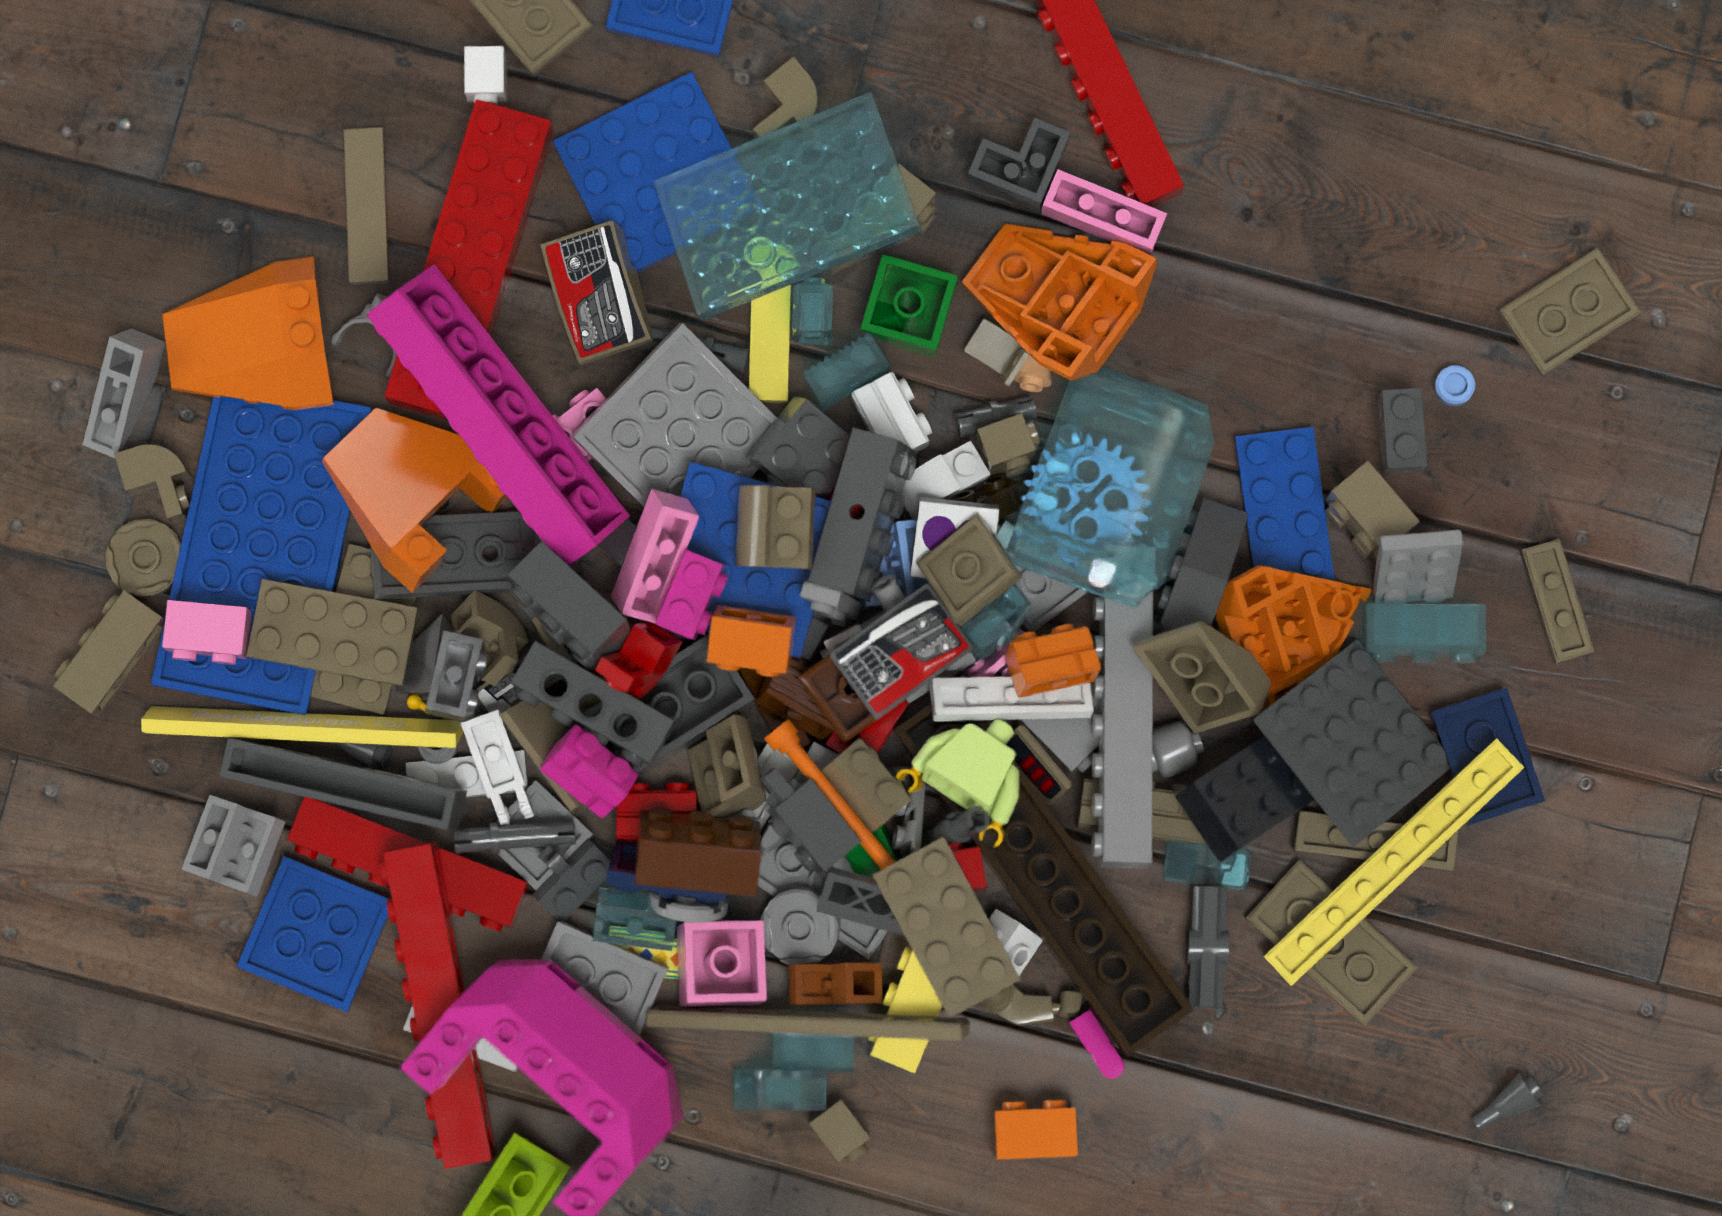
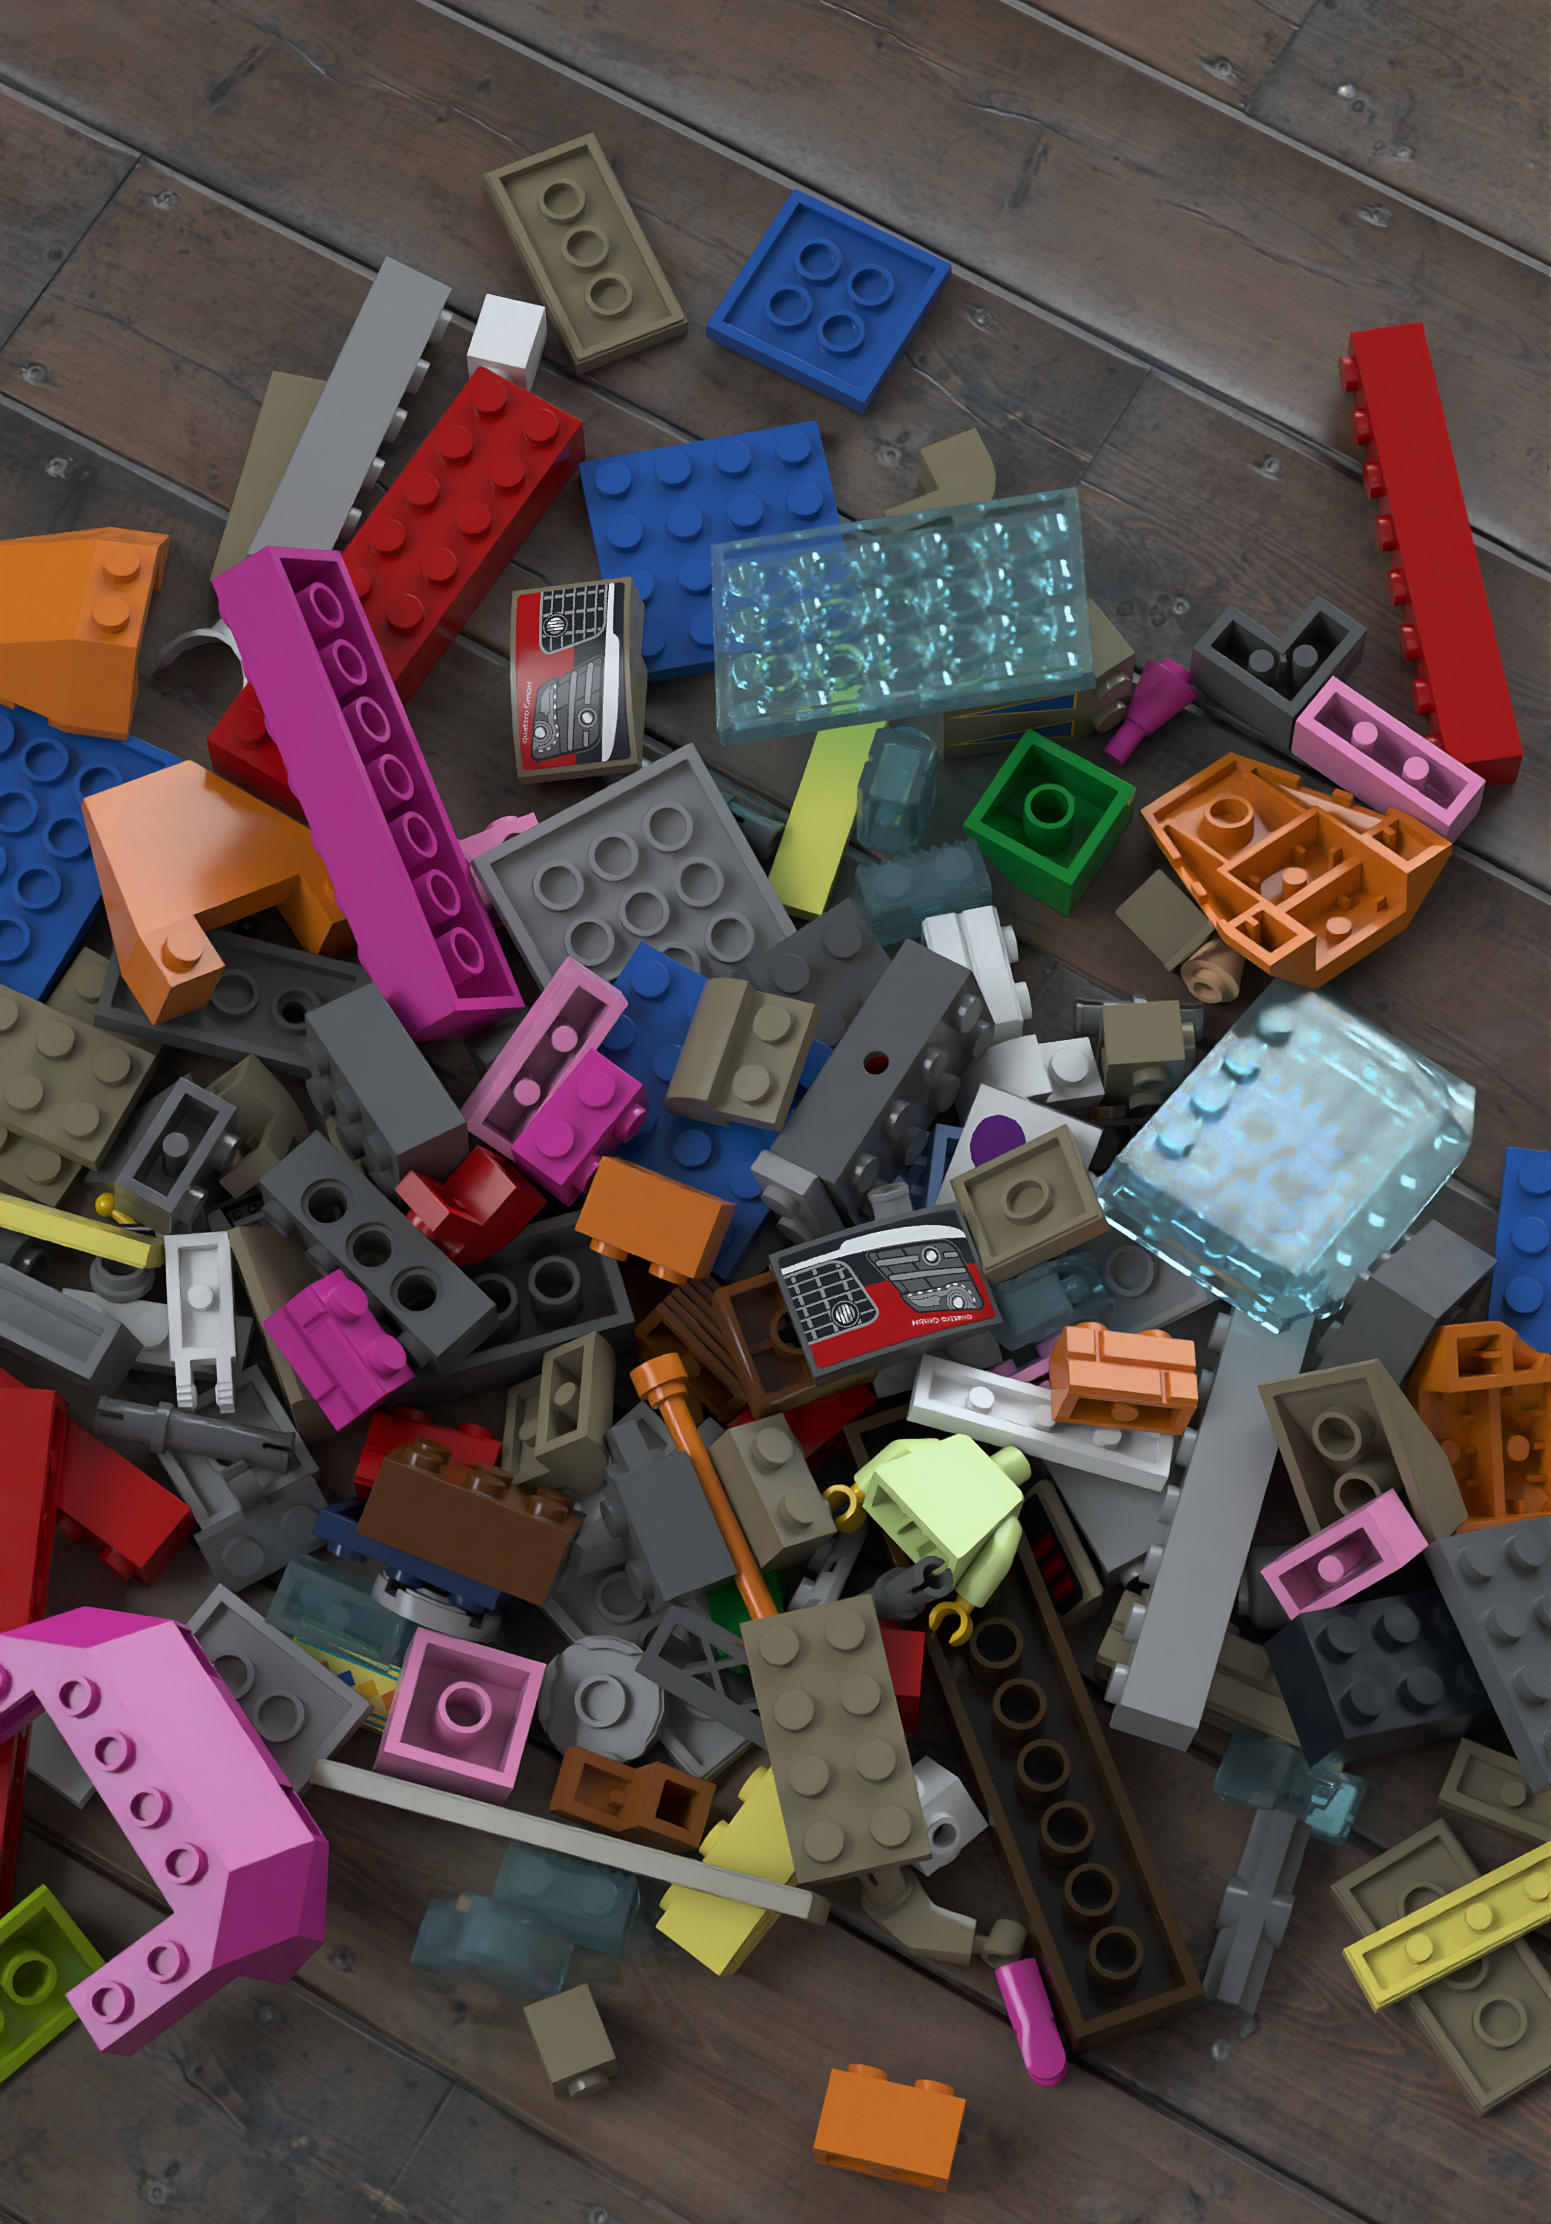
camera: 15 degrees right, 15 degrees down
(404, 162) = (357, 412): none -> light grey brick
(951, 203) = (1158, 697): none -> dark pink cone
(1209, 736) = (1345, 1556): none -> bright pink brick

